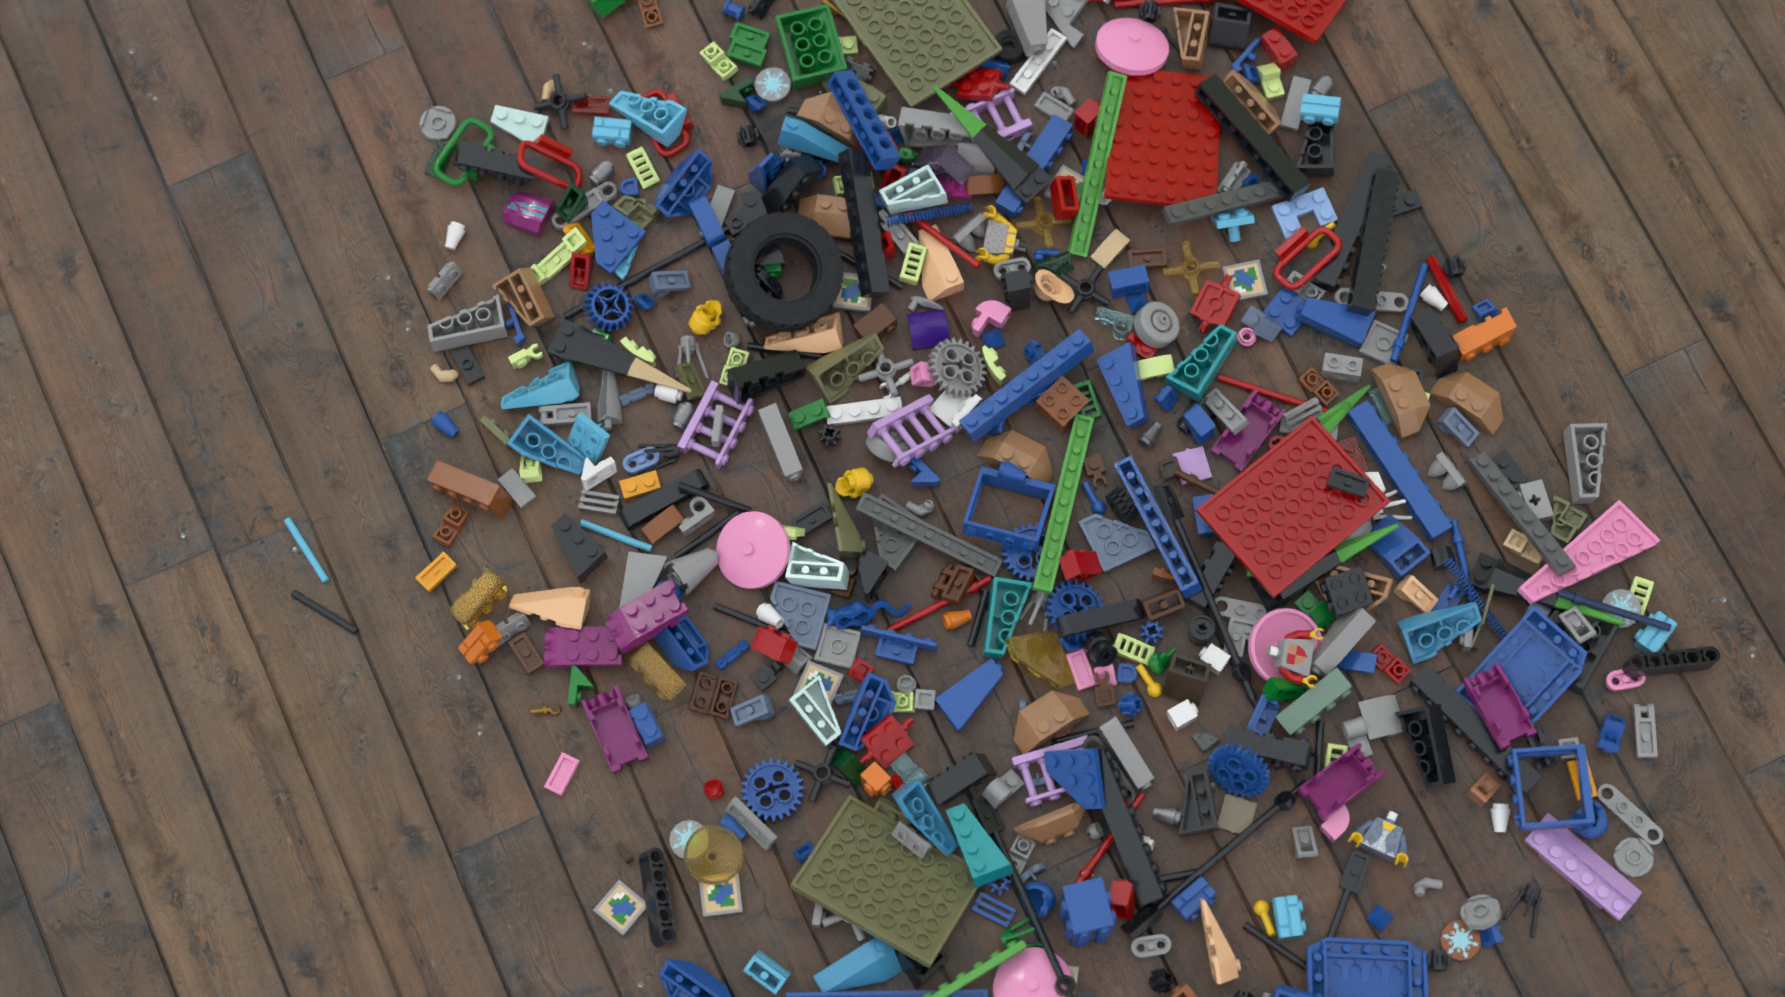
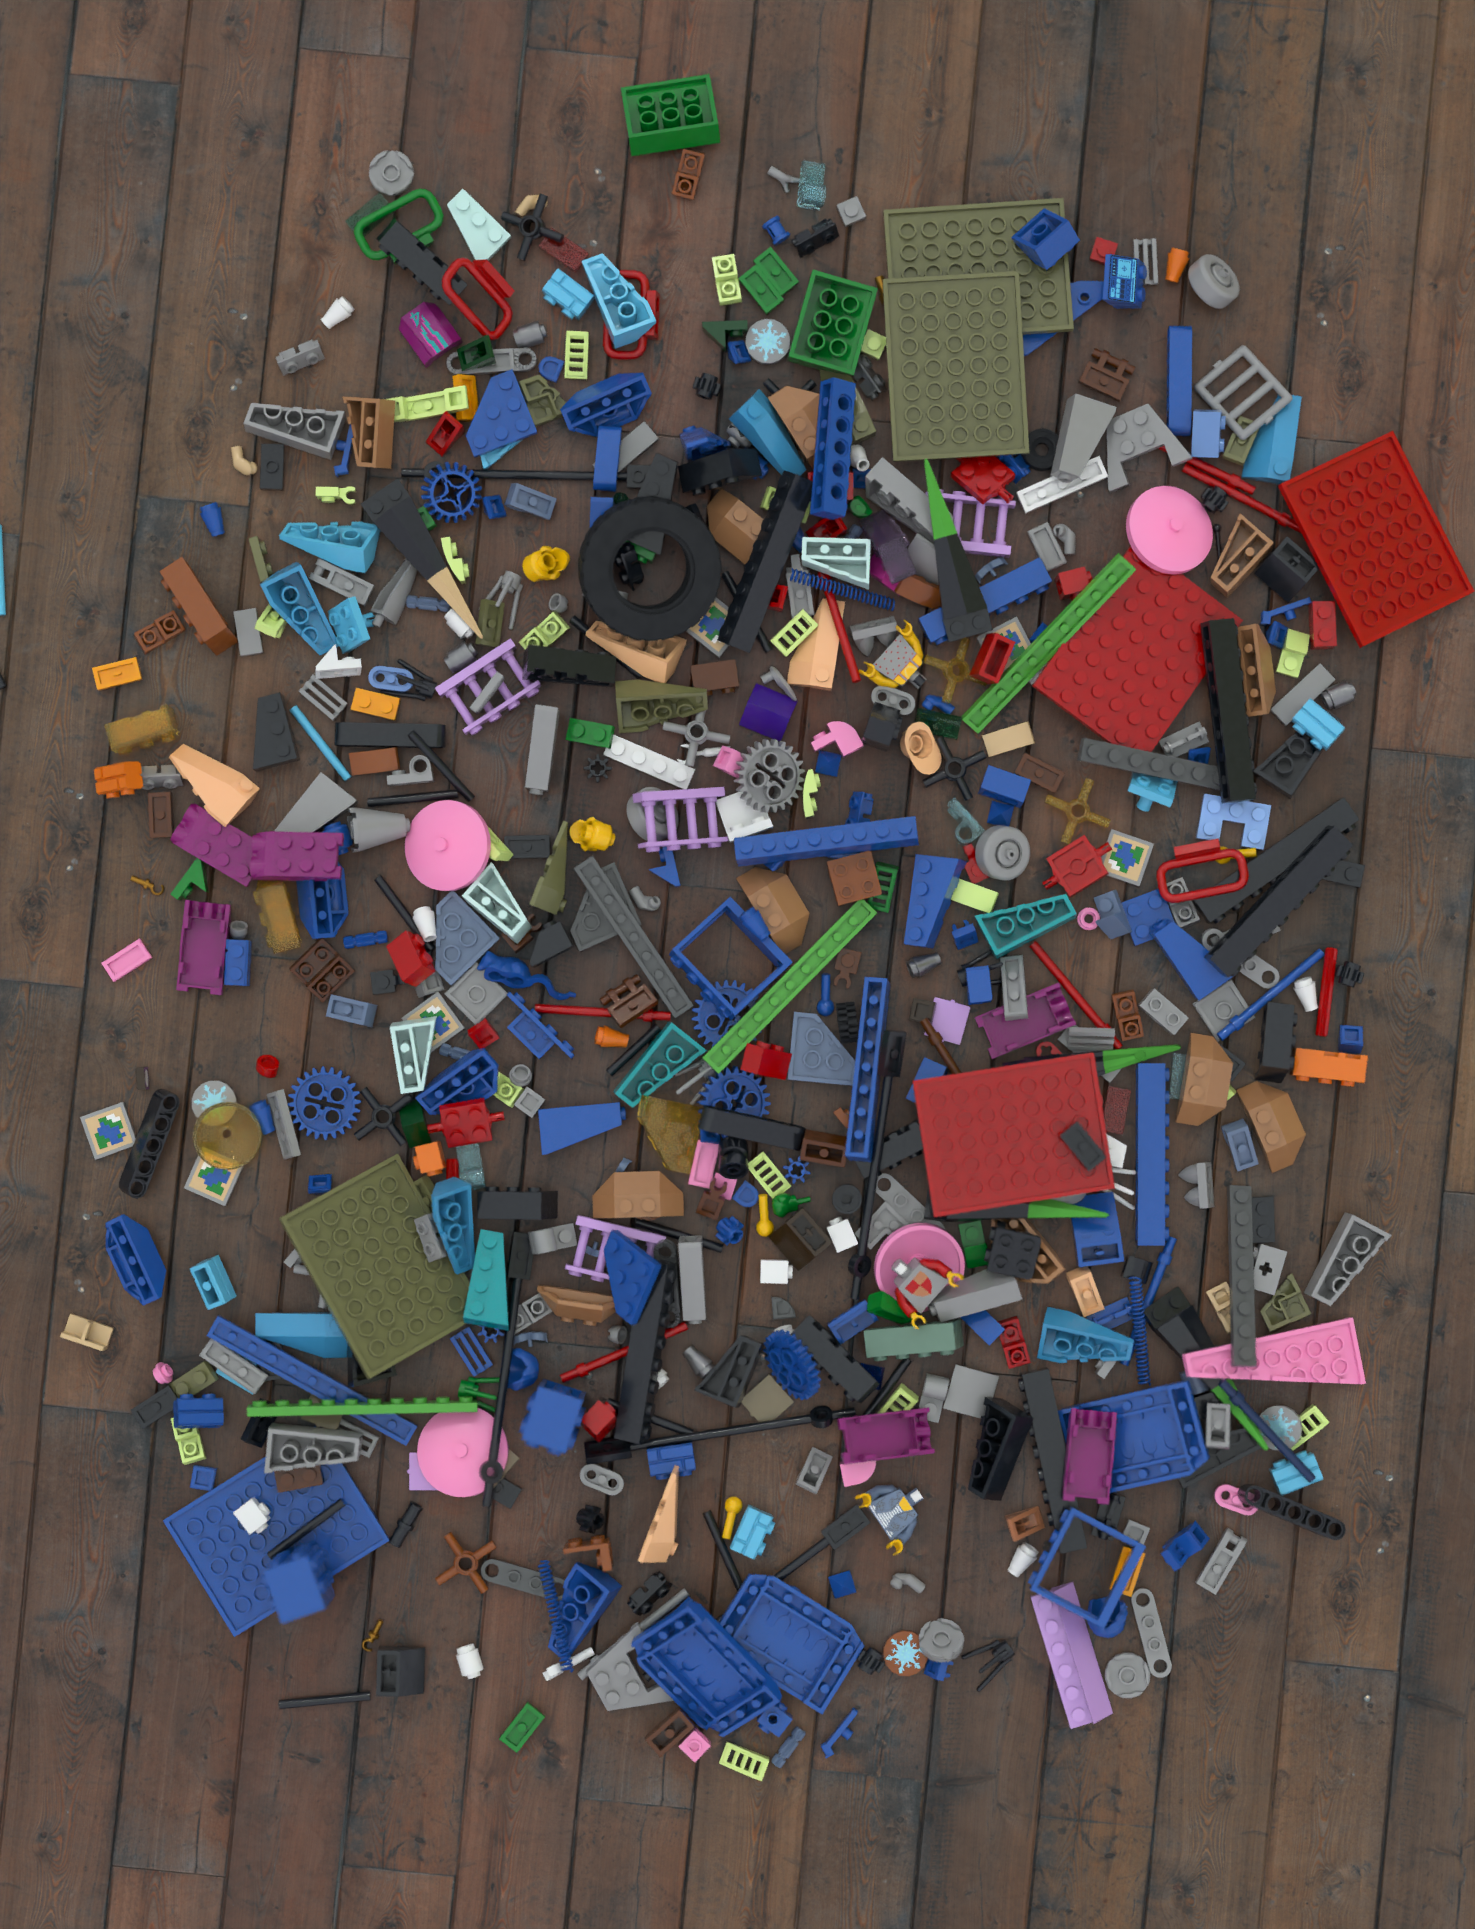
camera: 25 degrees right, 15 degrees up
(1475, 643) = (1115, 1372): olive piece -> none

